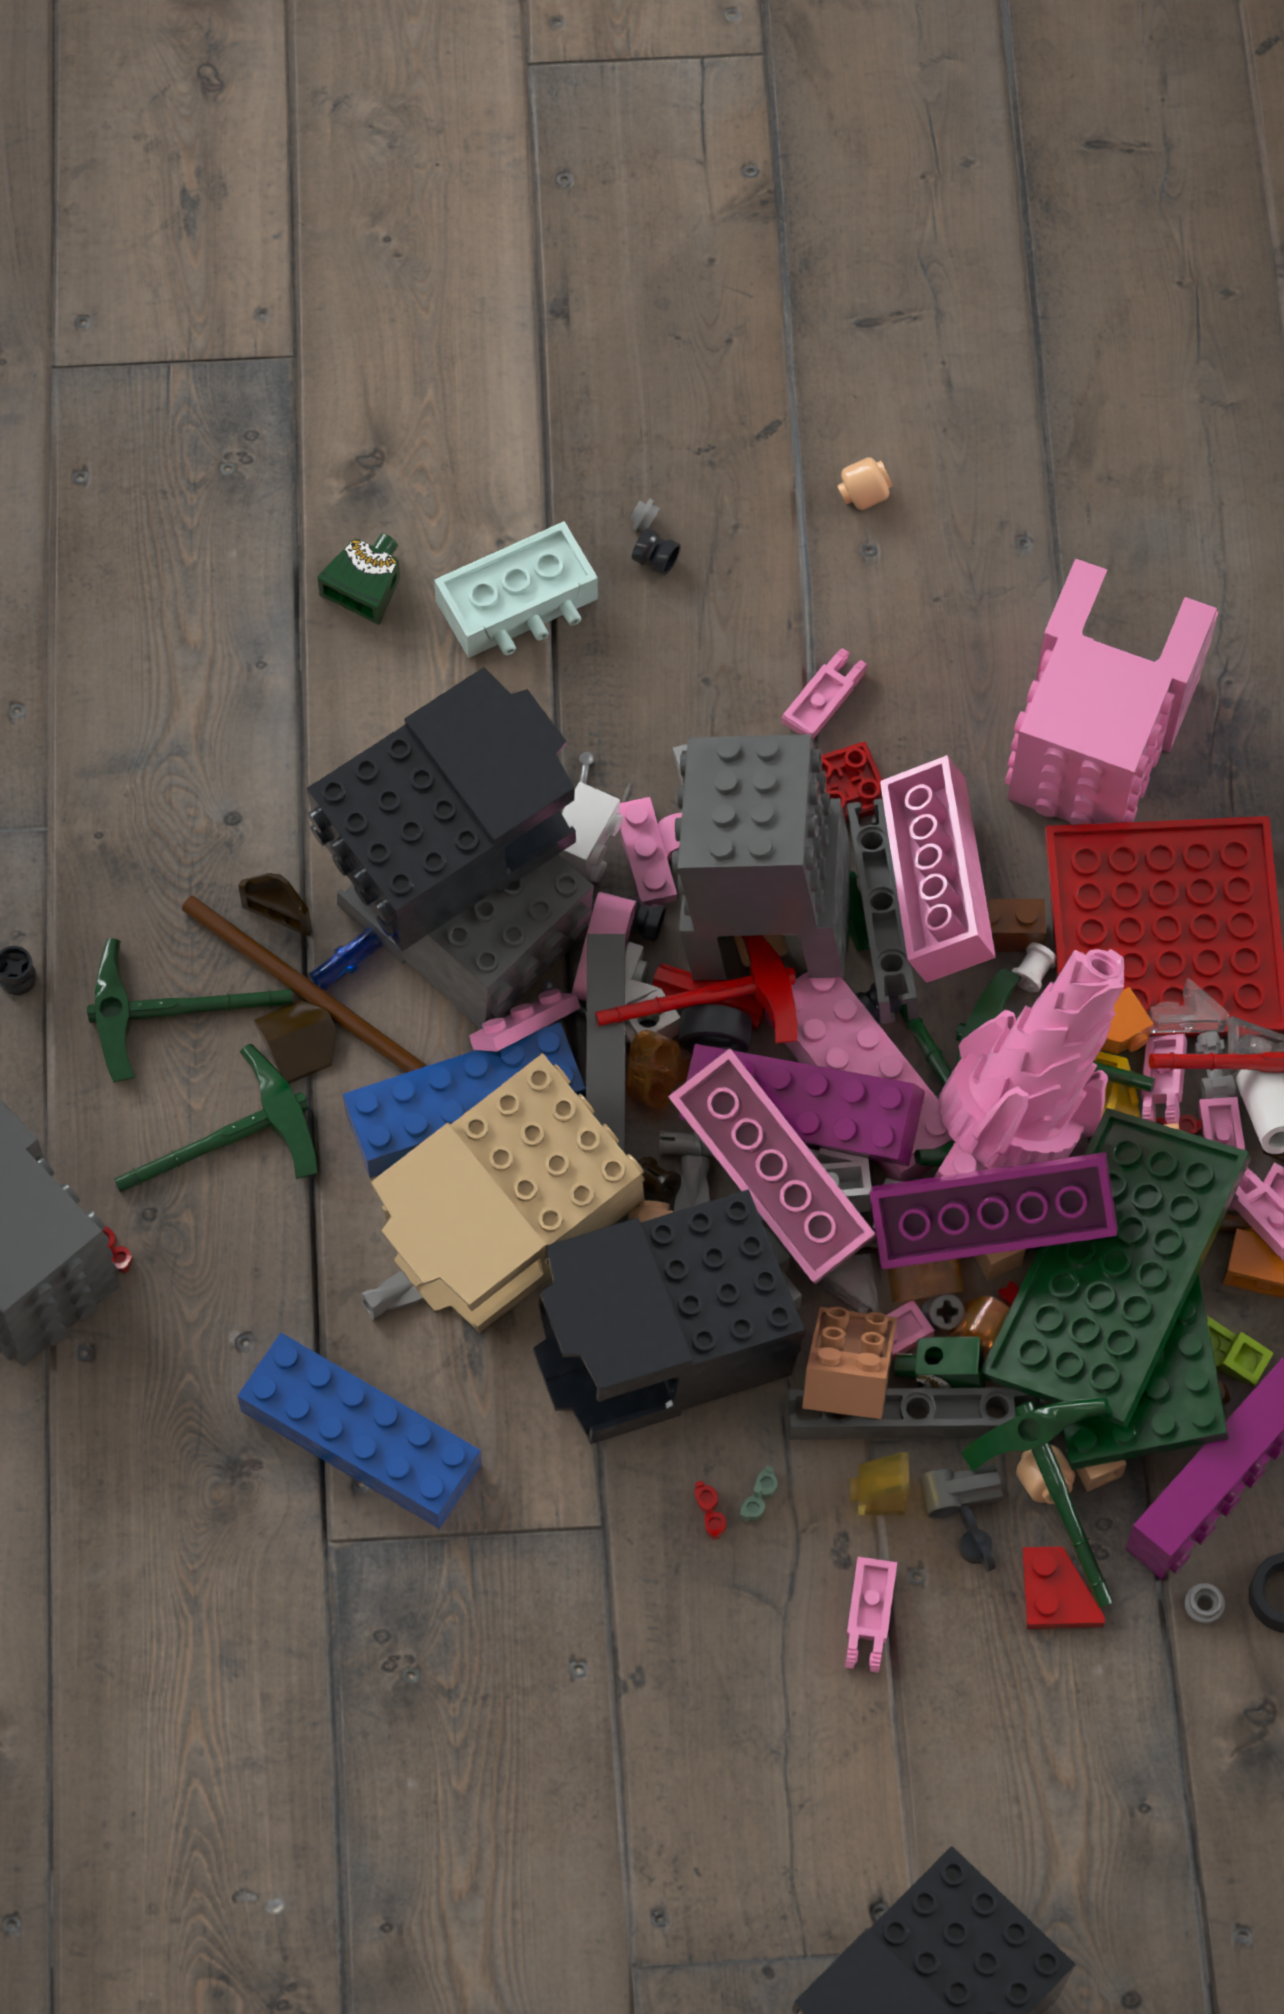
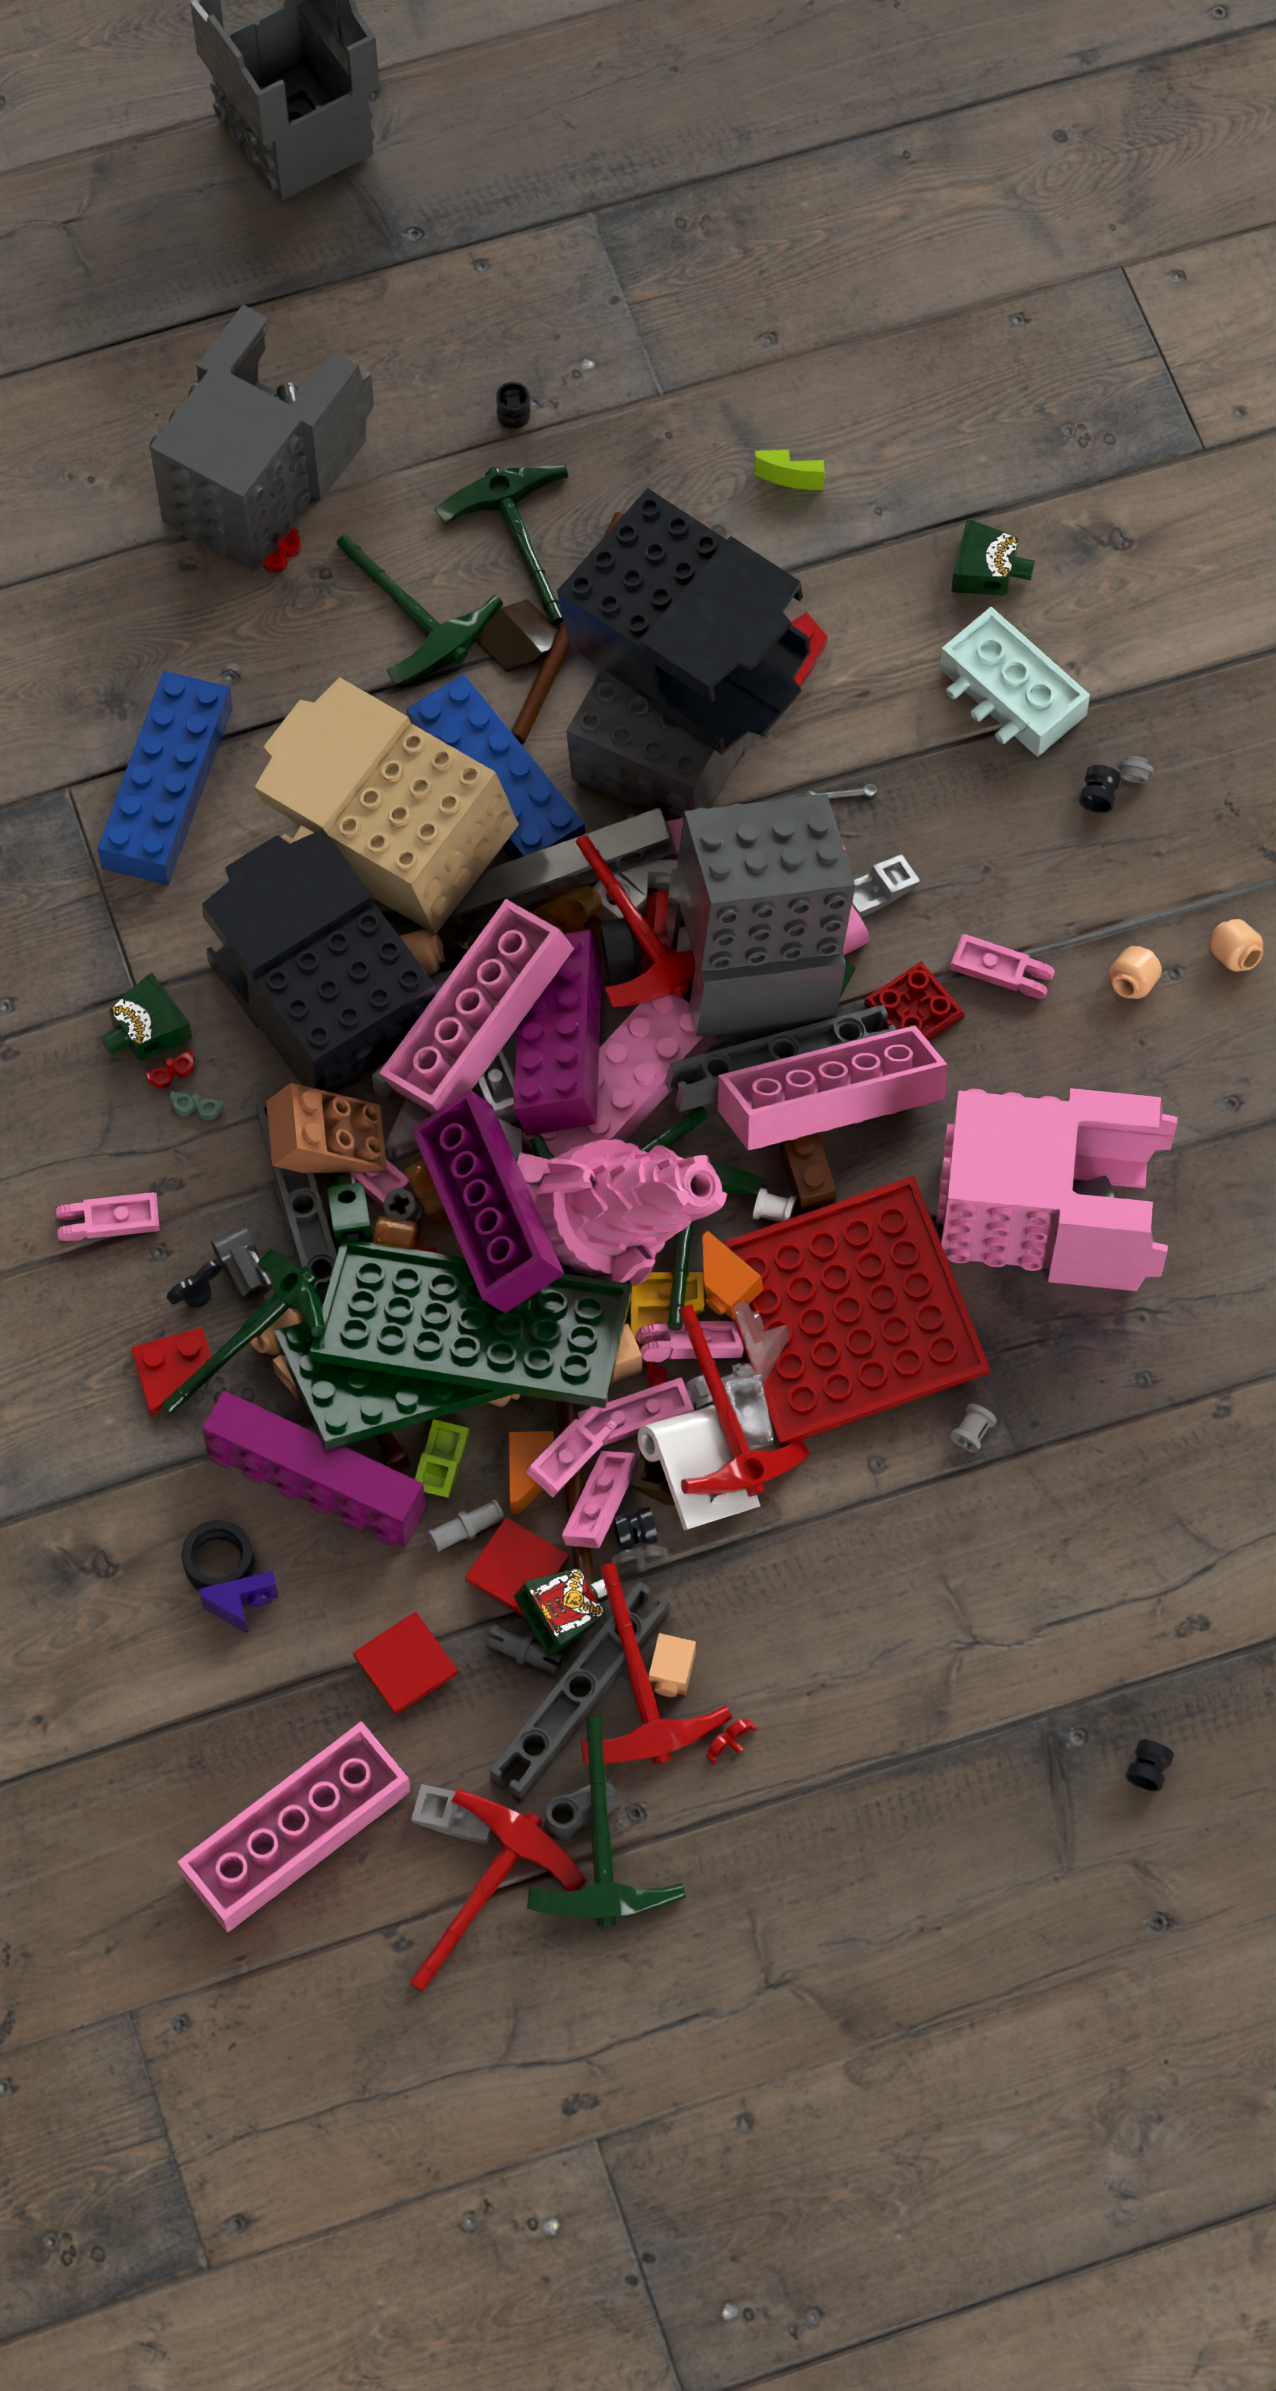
camera: 75 degrees right, 0 degrees up
(187, 733) = (778, 469): none -> lime slope
(524, 1020) = (576, 793): bright pink plate -> none
(594, 819) = (774, 780): white brick -> none
(649, 1520) = (146, 1021): none -> dark green torso
(869, 578) = (1135, 972): none -> light nougat head
(881, 1486) = (224, 1197): clear yellow slope -> none
(1207, 1592) = (186, 1482): light grey plate -> none

